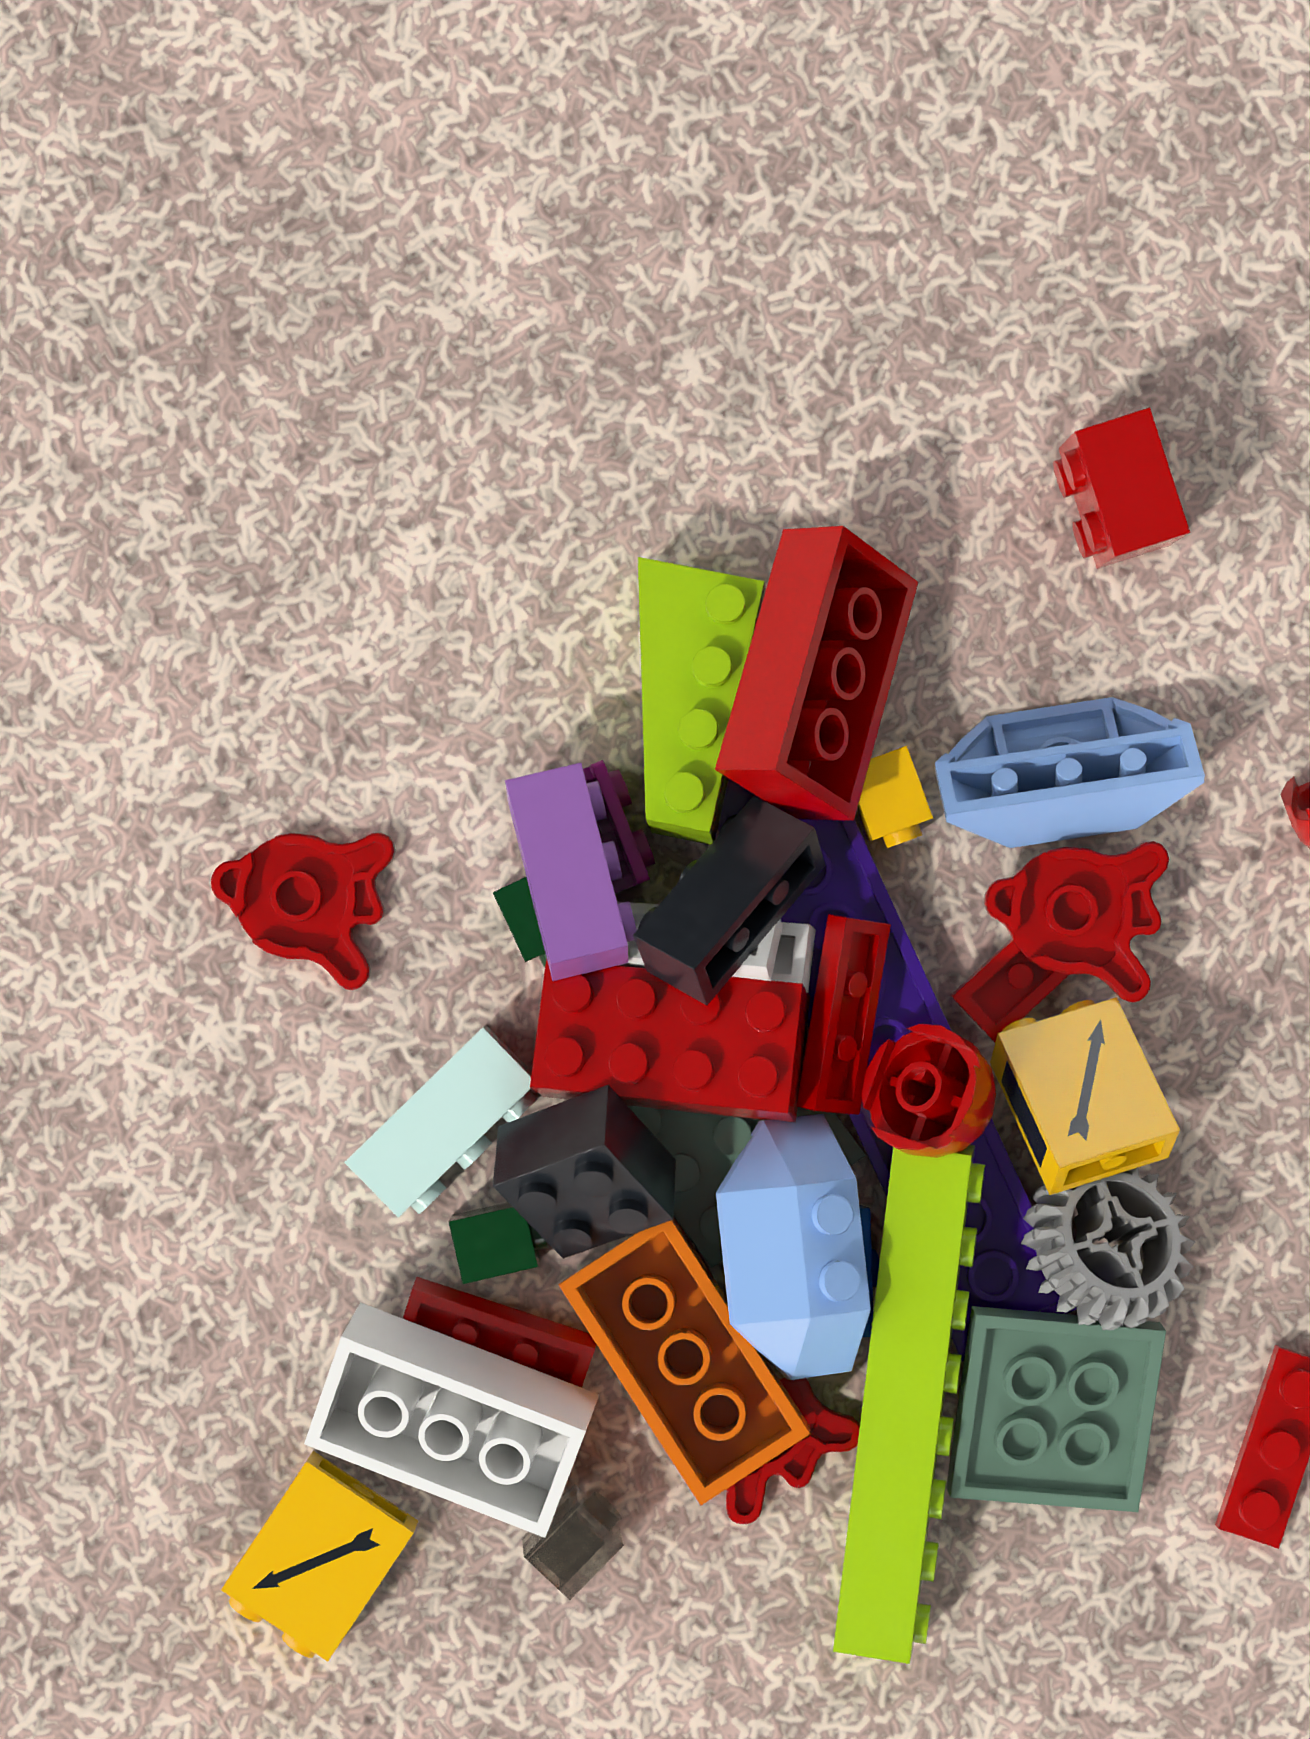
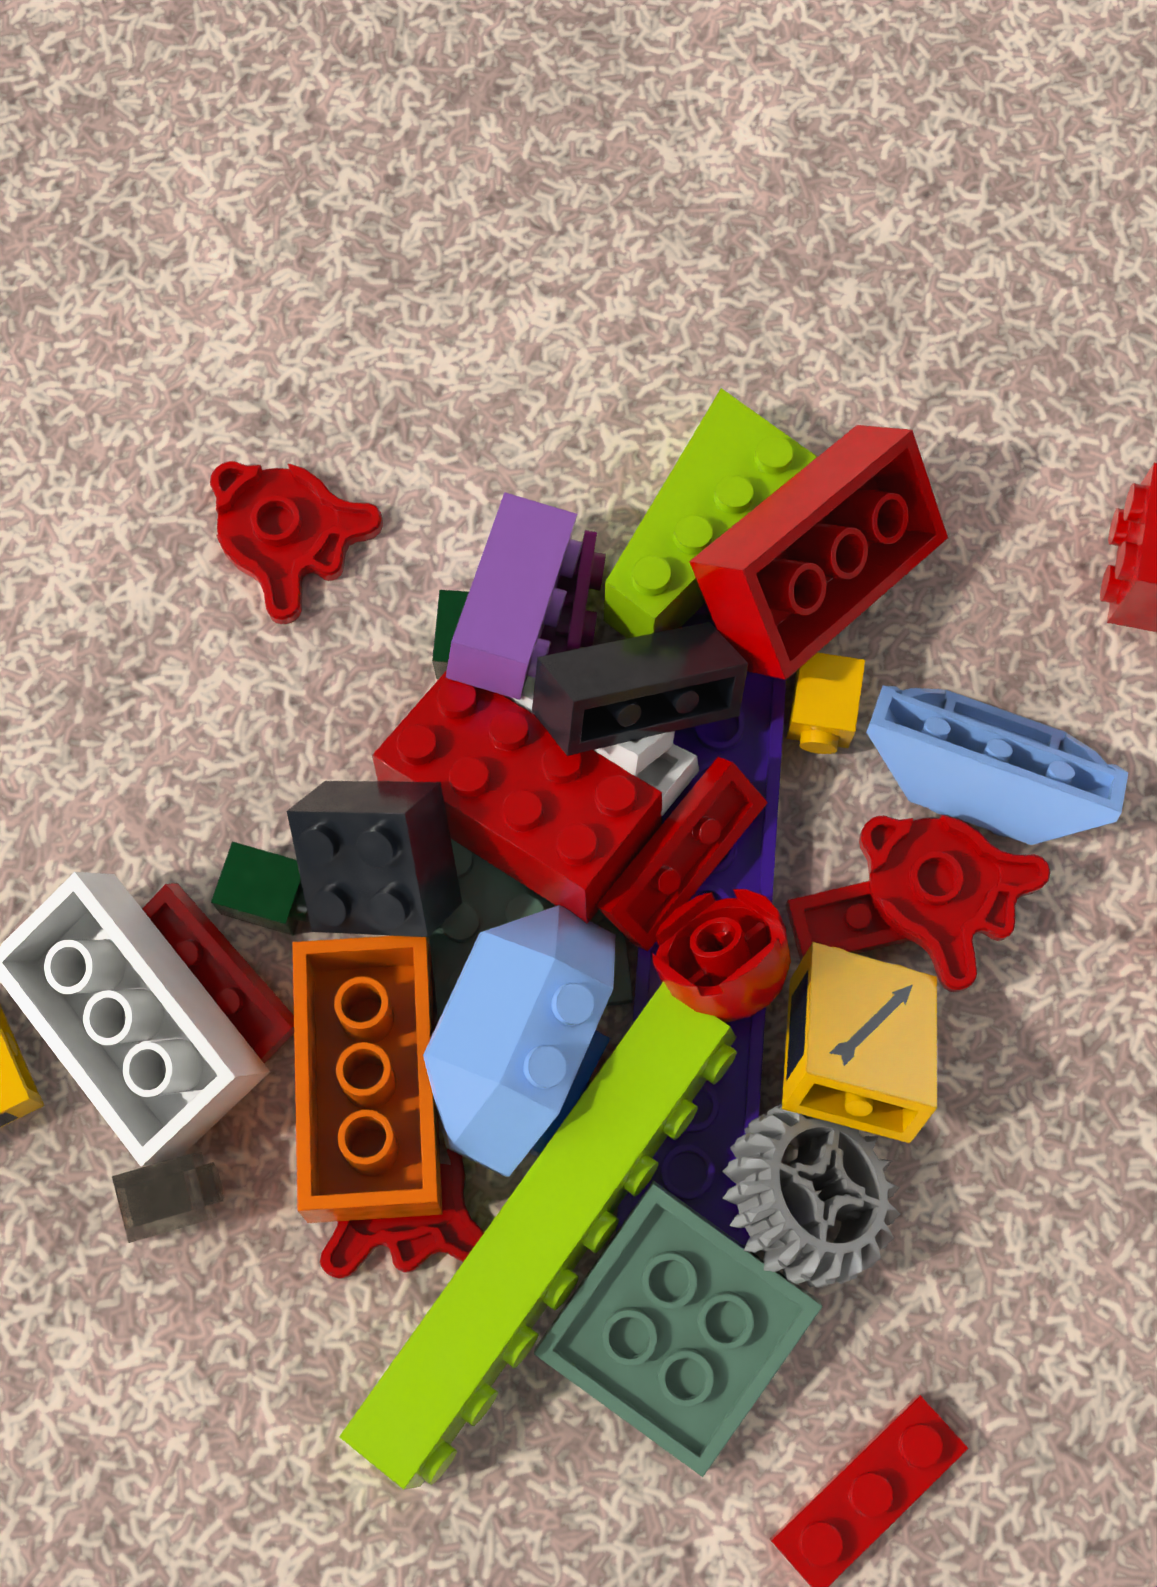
camera: 25 degrees right, 15 degrees down
(444, 1123) = (275, 762): light aqua brick -> none

